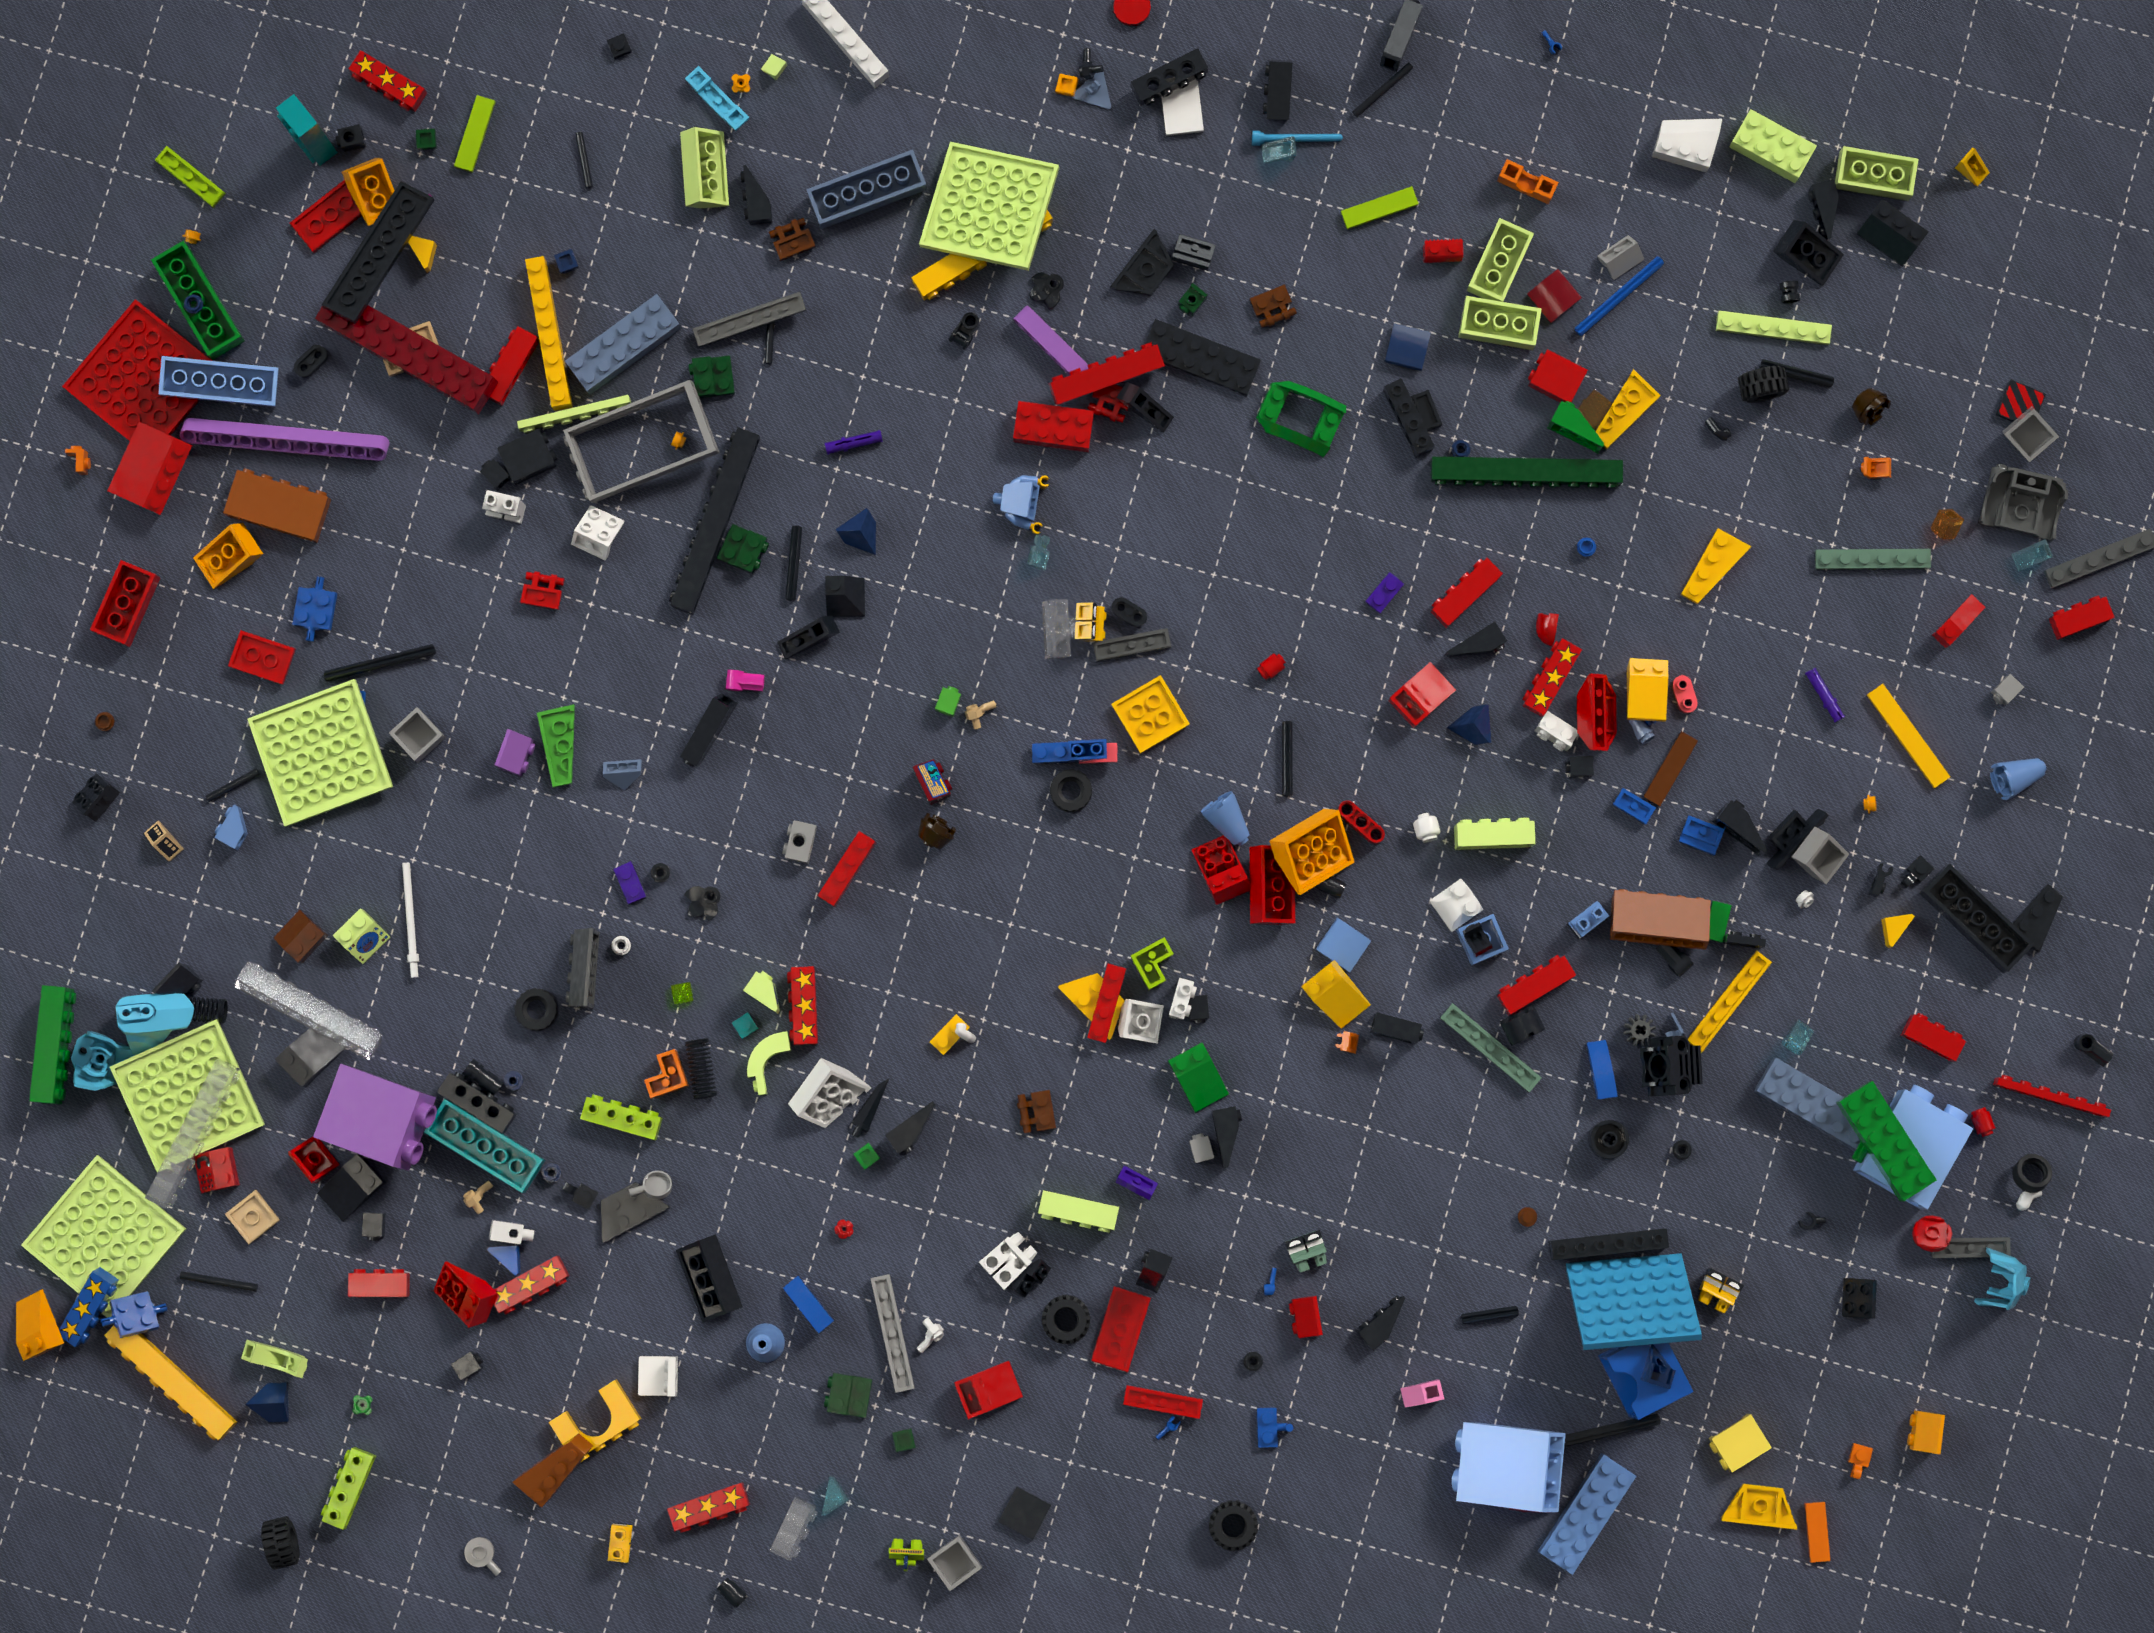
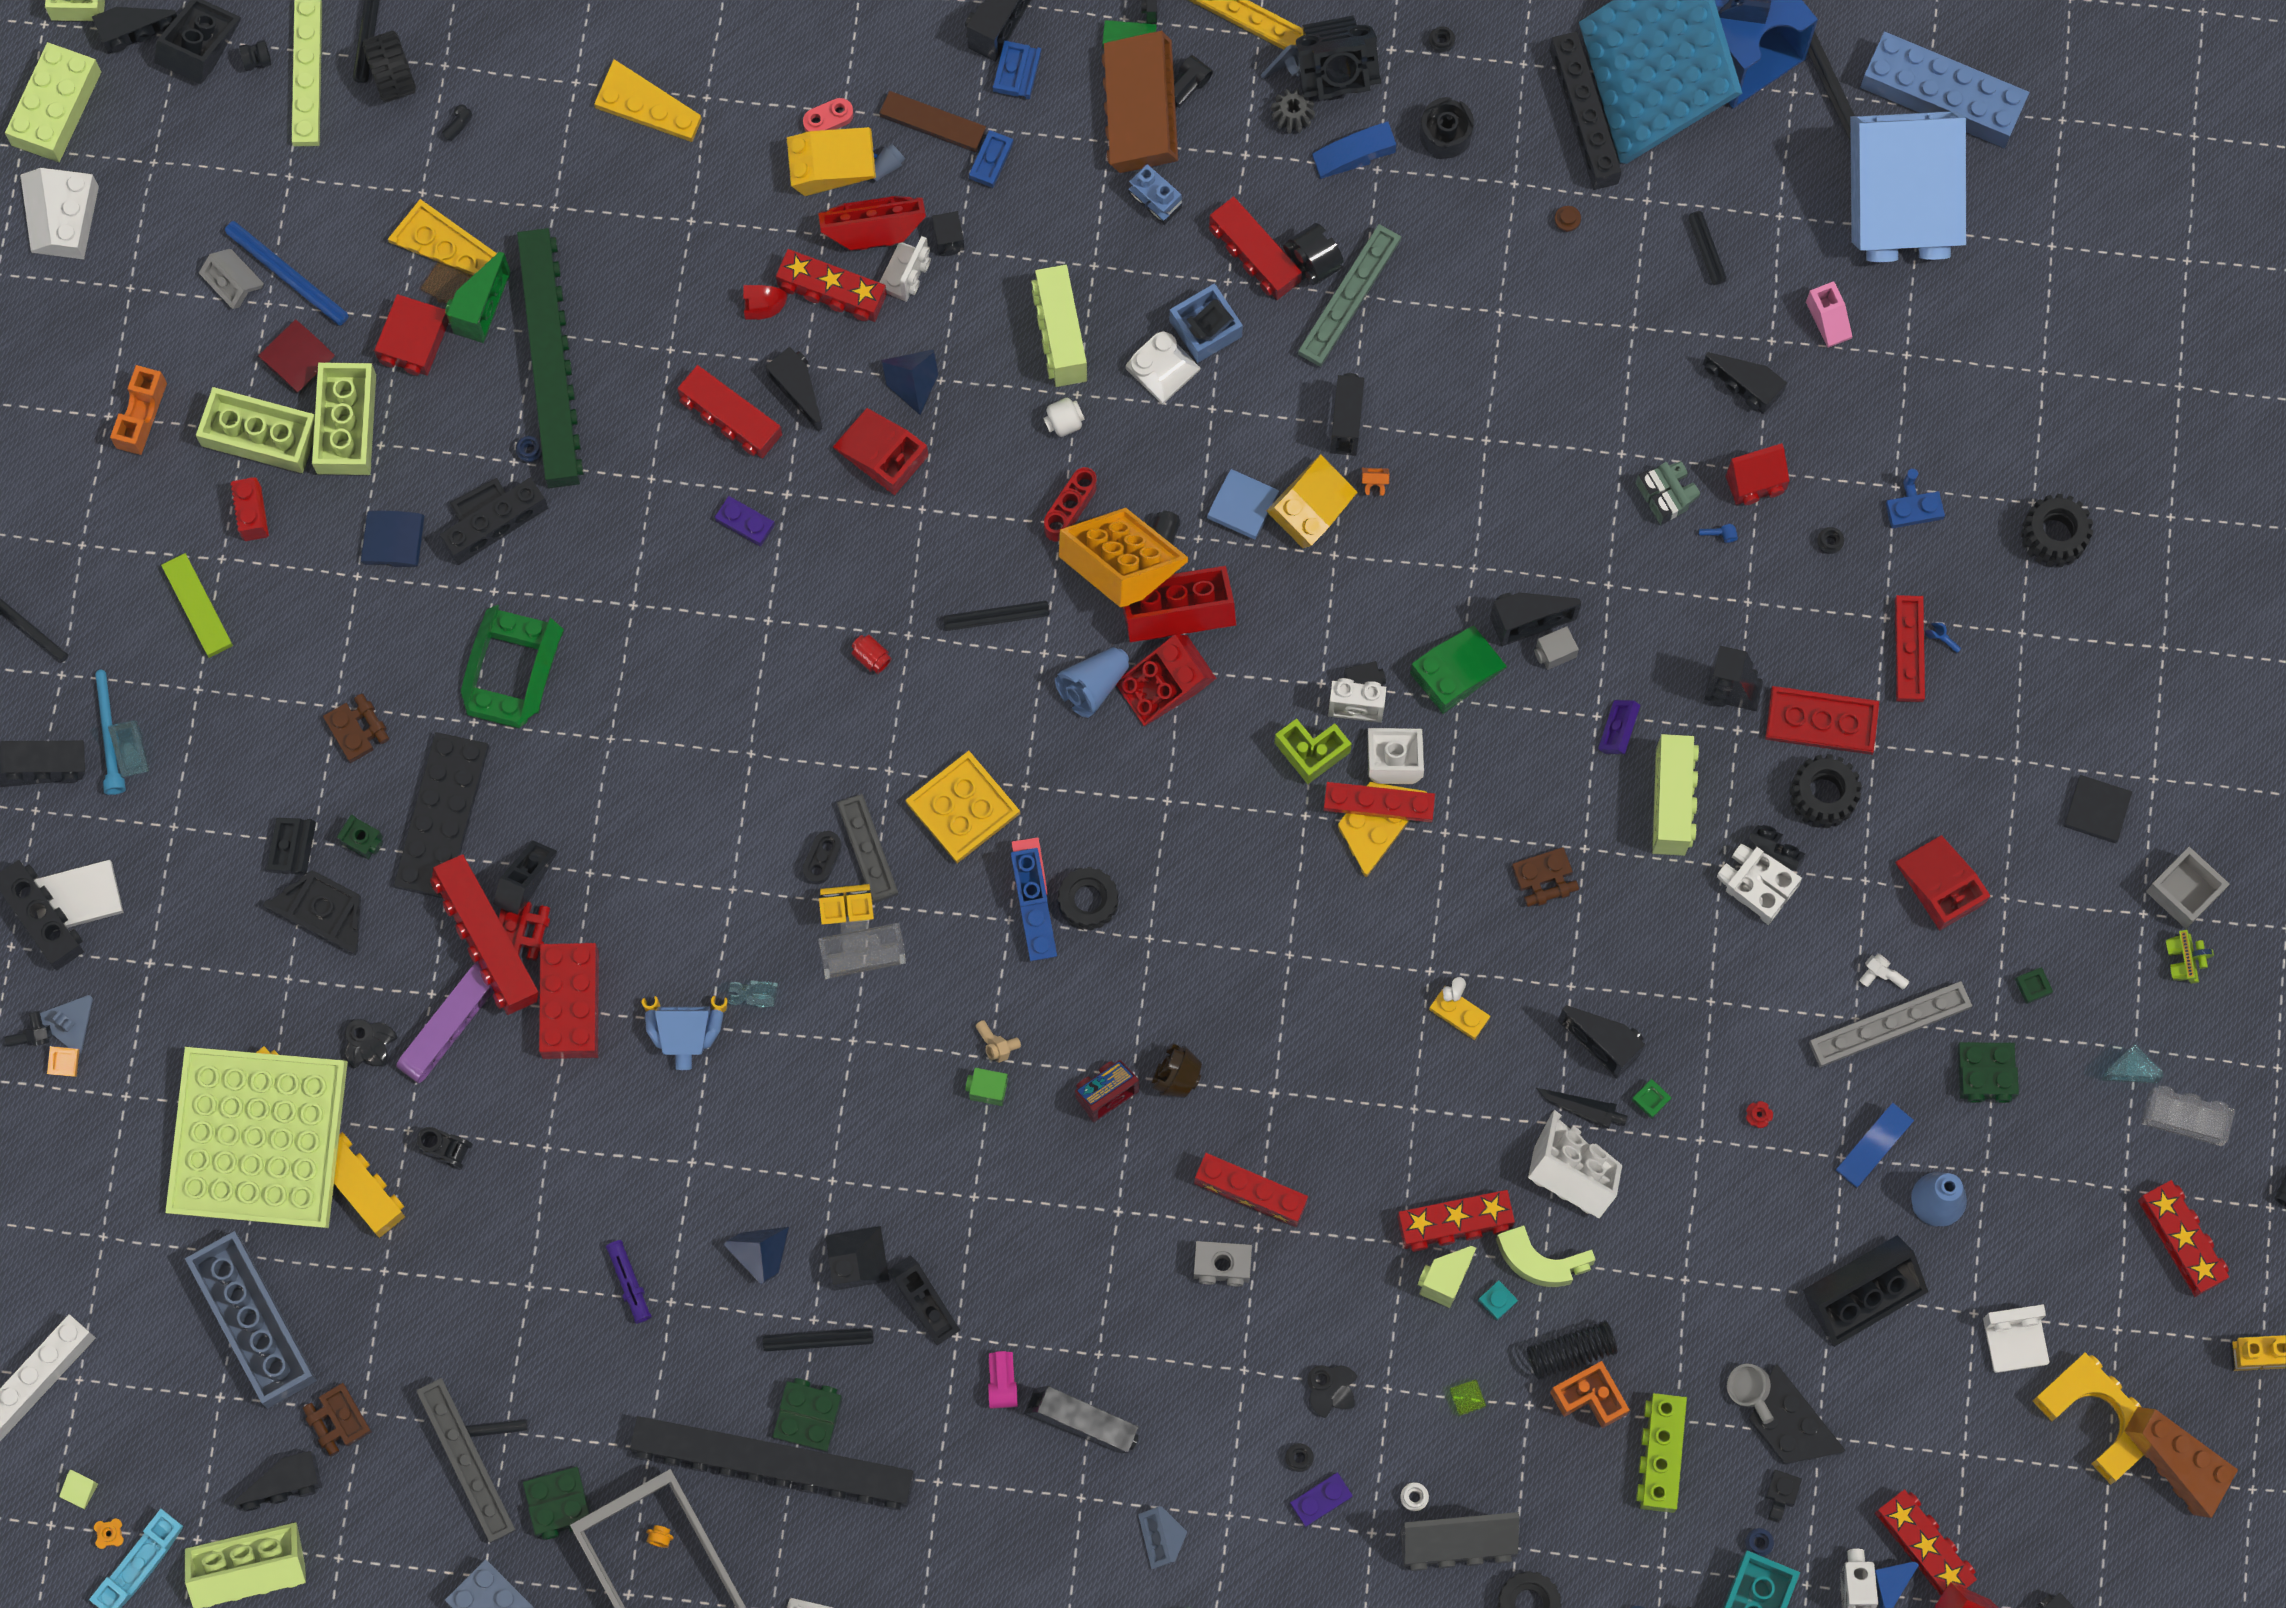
camera: 100 degrees left, 10 degrees down
(1586, 547) = (643, 268): blue plate -> none

